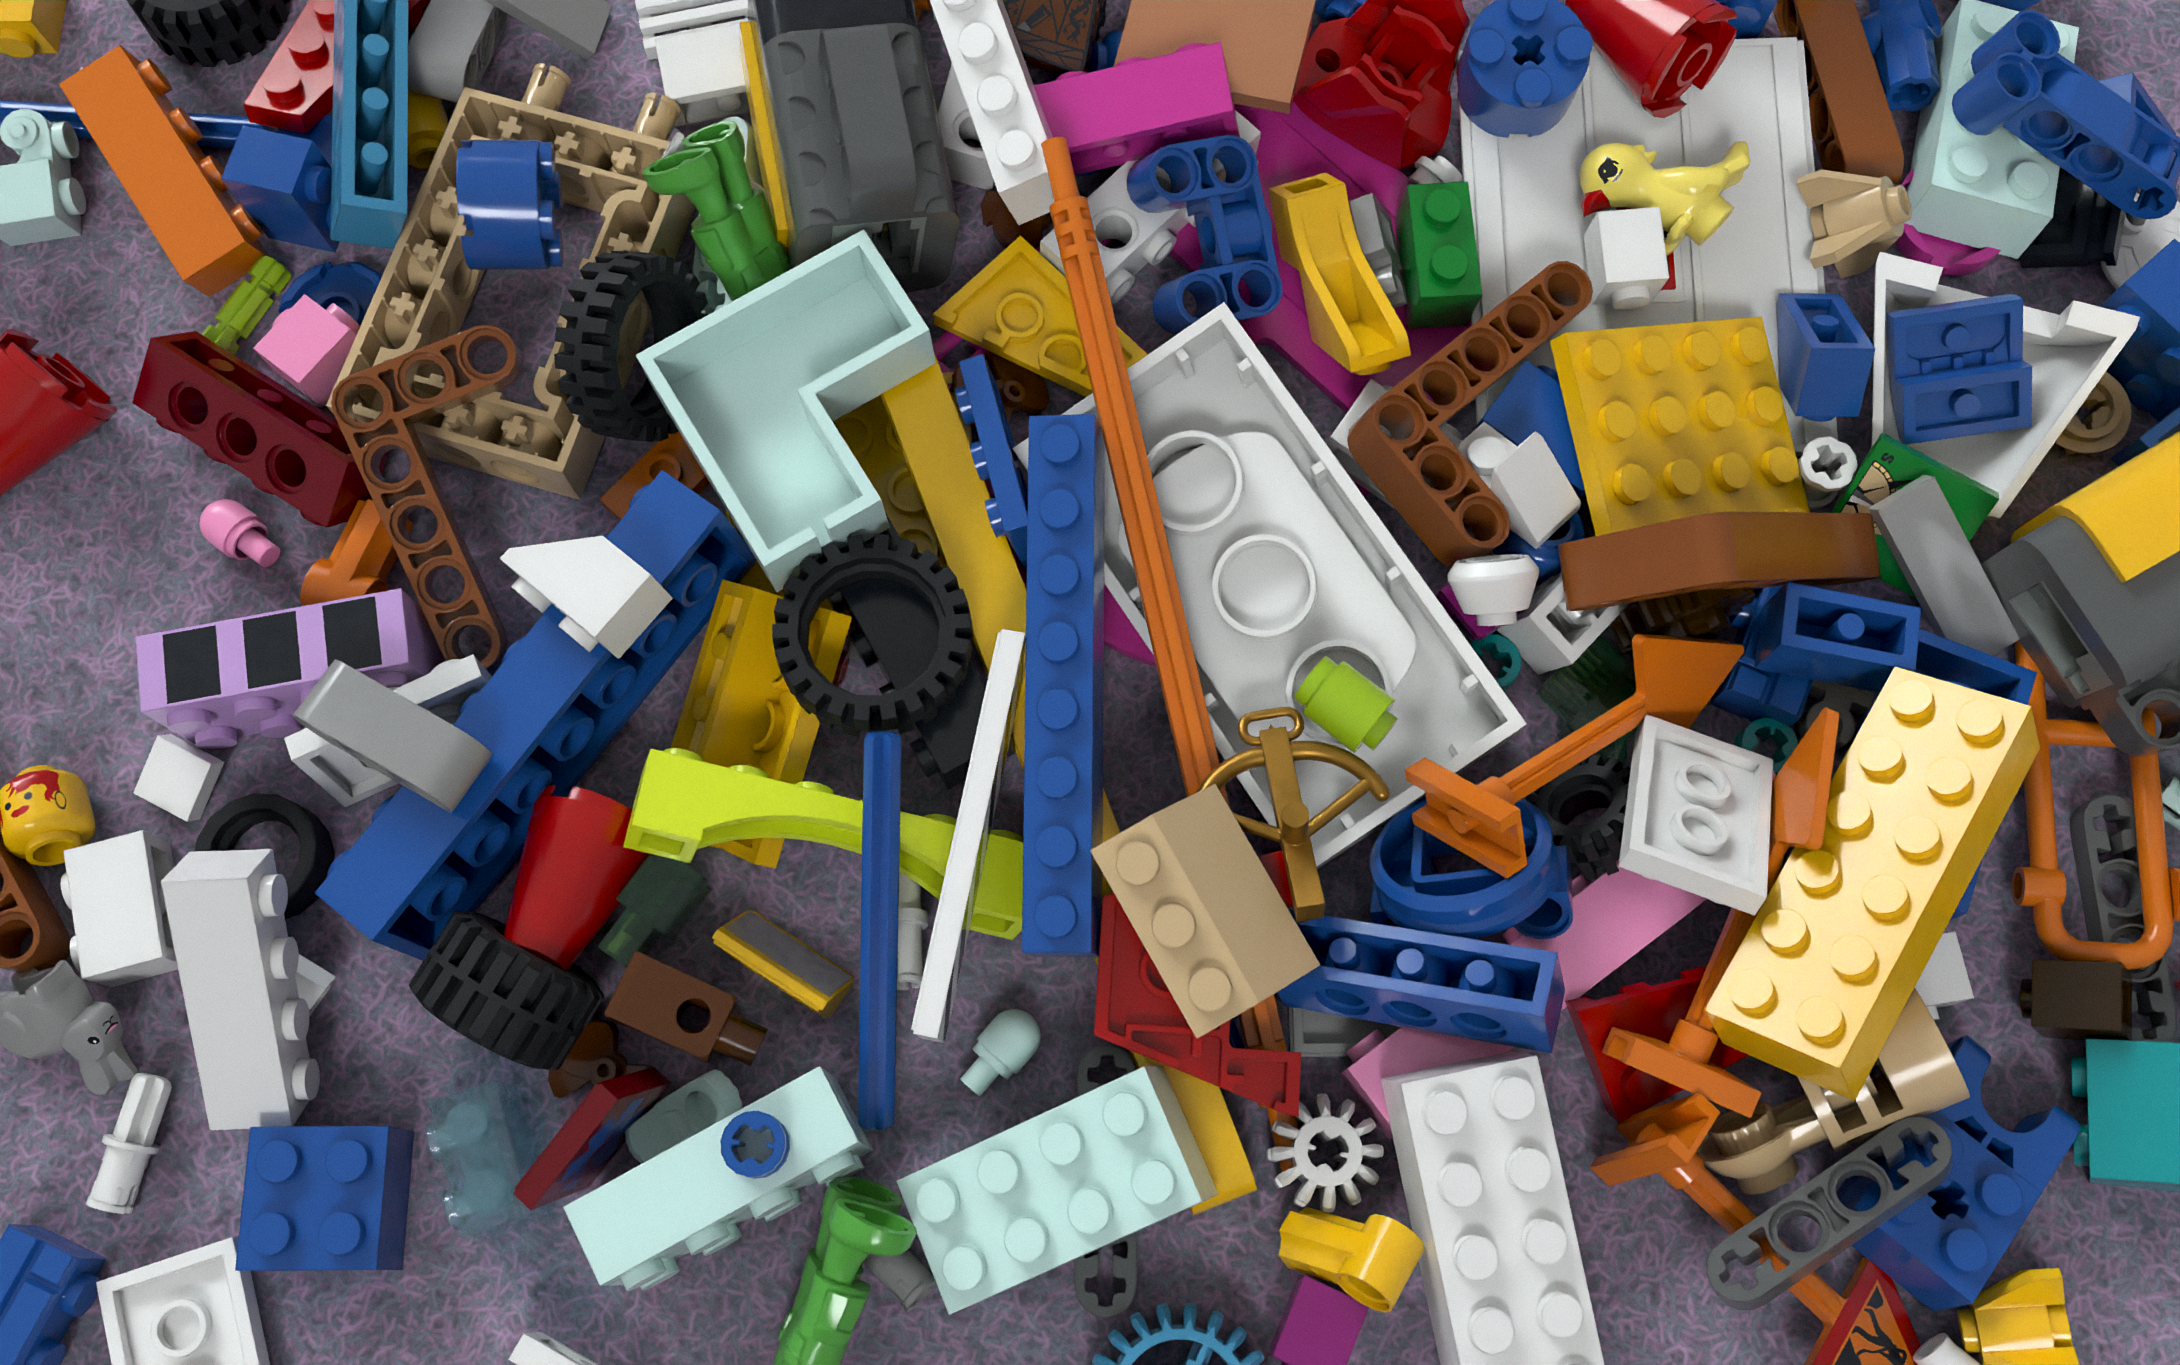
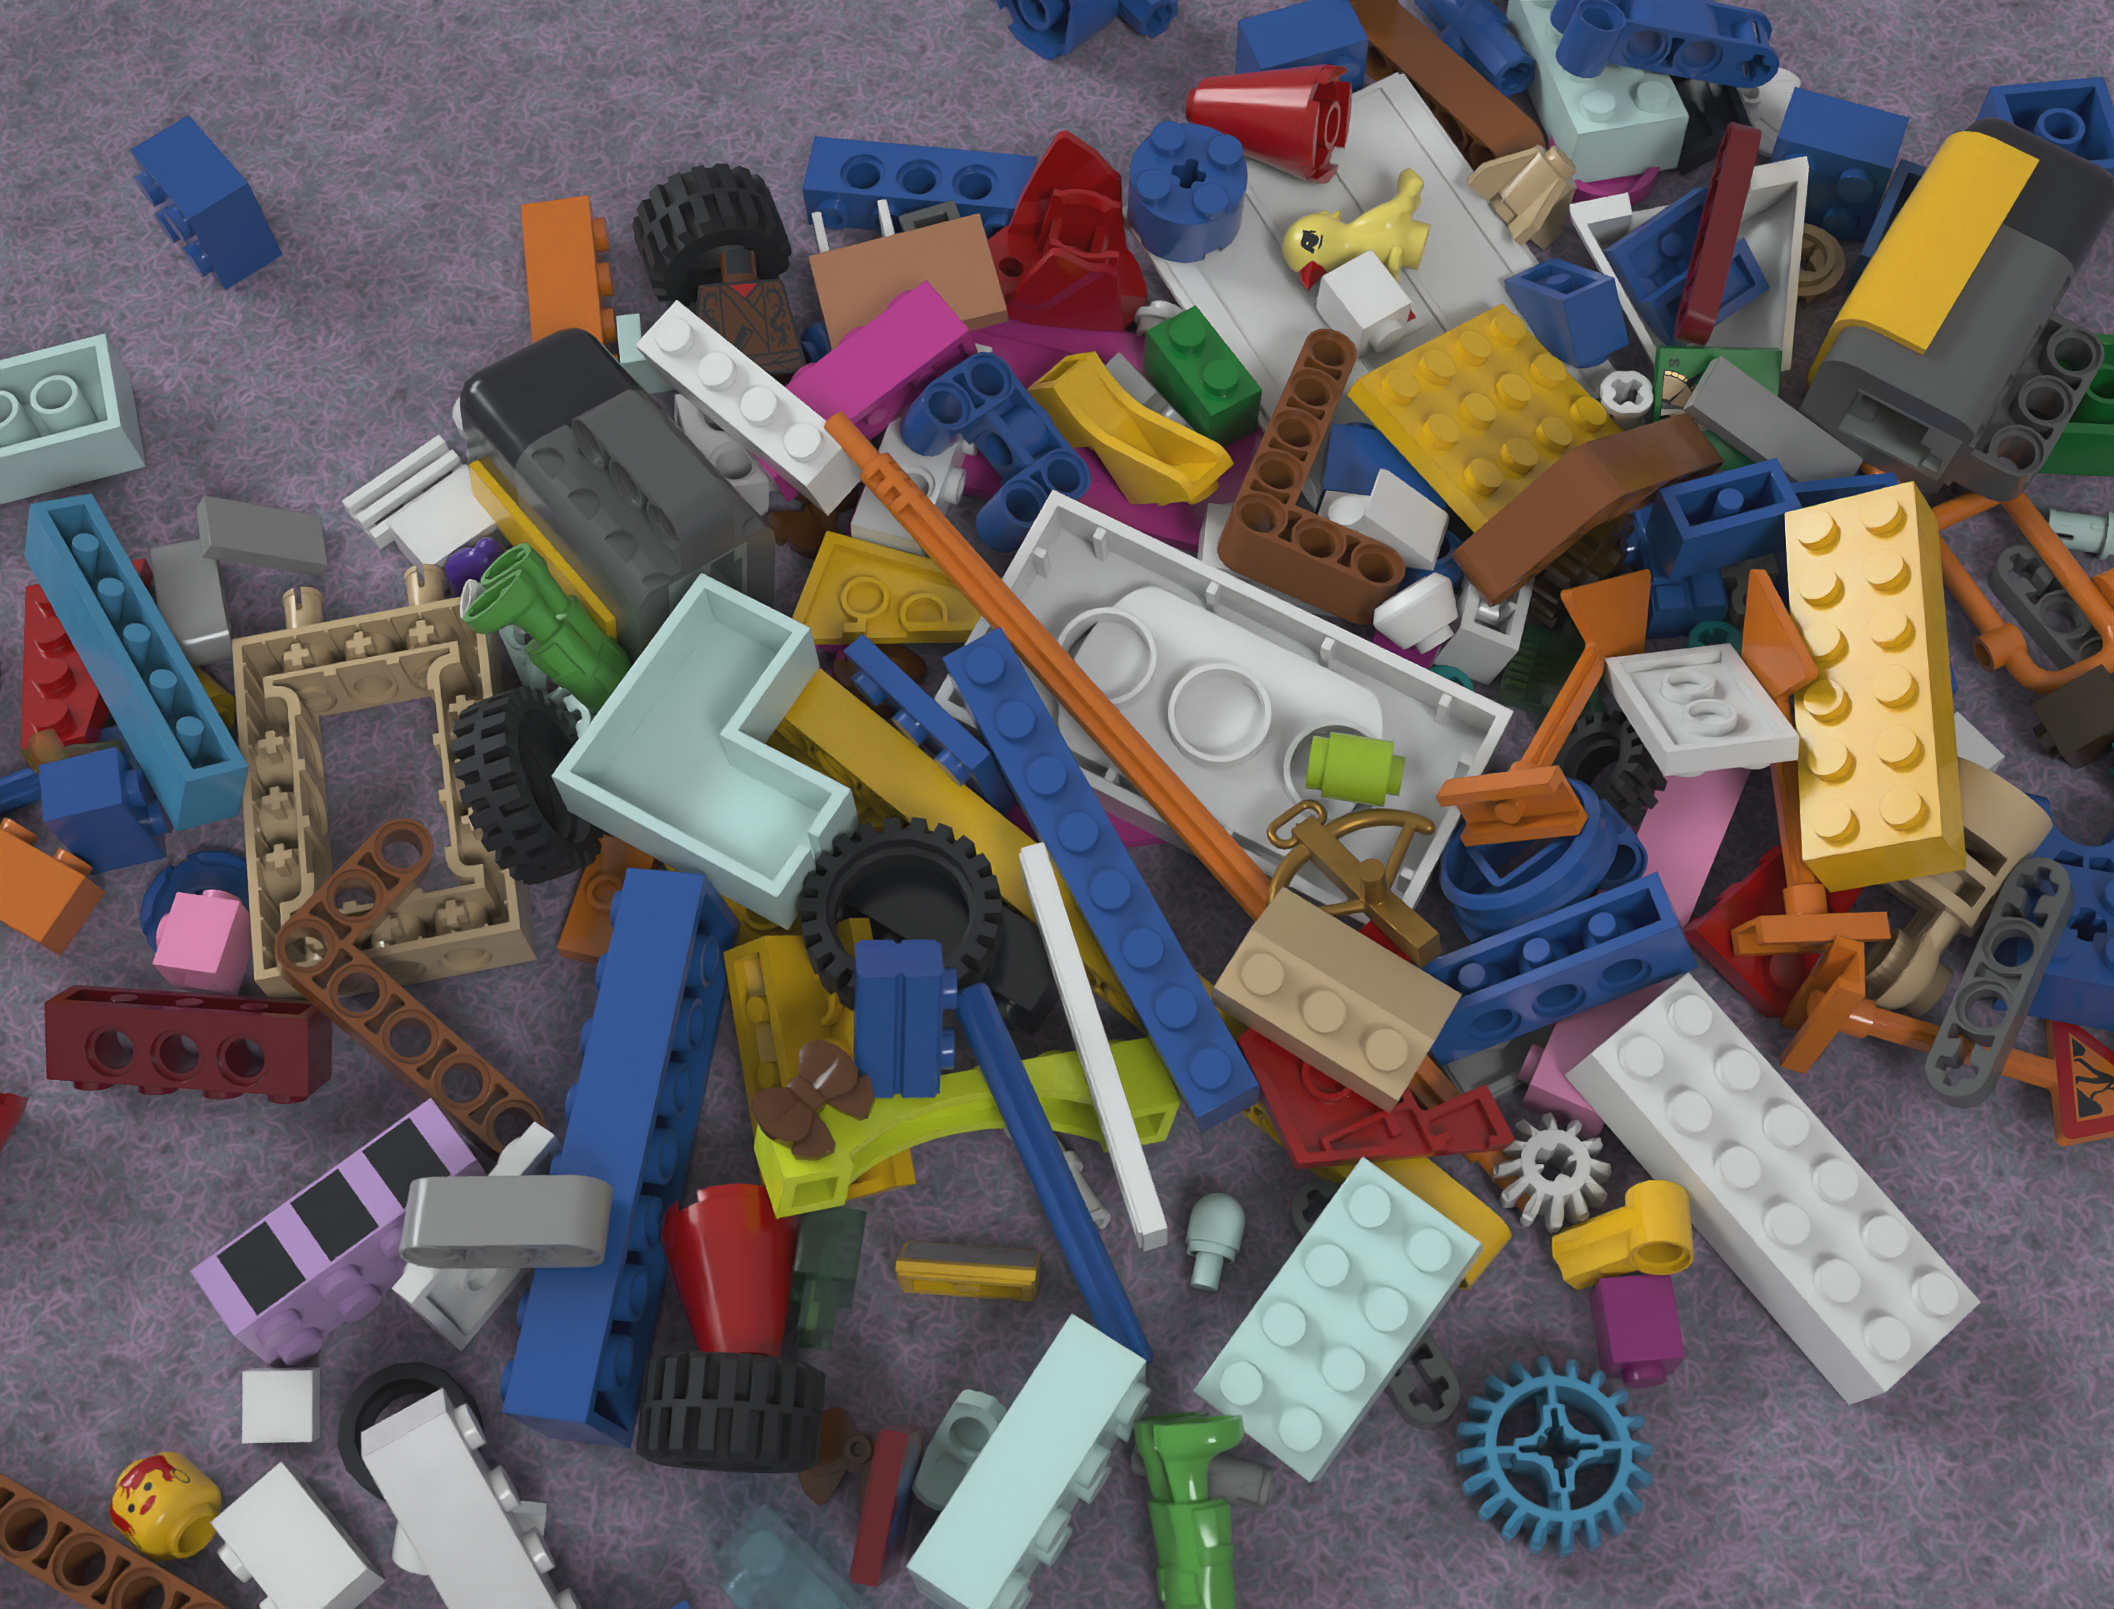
camera: 25 degrees left, 10 degrees down
(237, 532) = (214, 1151): bright pink cylinder -> none
(248, 303) = (107, 937): lime axle -> none
(262, 114) = (48, 747): none -> clear yellow hand
(357, 561) = (352, 1106): orange piece -> none
(510, 204) = (348, 711): blue brick -> none
(594, 585) = (624, 993): white slope -> none
(655, 996) = (876, 1358): reddish brown torso -> none
(669, 767) = (824, 1079): none -> reddish brown piece
(699, 113) = (471, 563): none -> dark purple arm
(751, 1166) = (1046, 1388): blue bush -> none
(807, 730) = (901, 1016): none -> blue brick
(2005, 351) = (1717, 234): none -> dark red beam

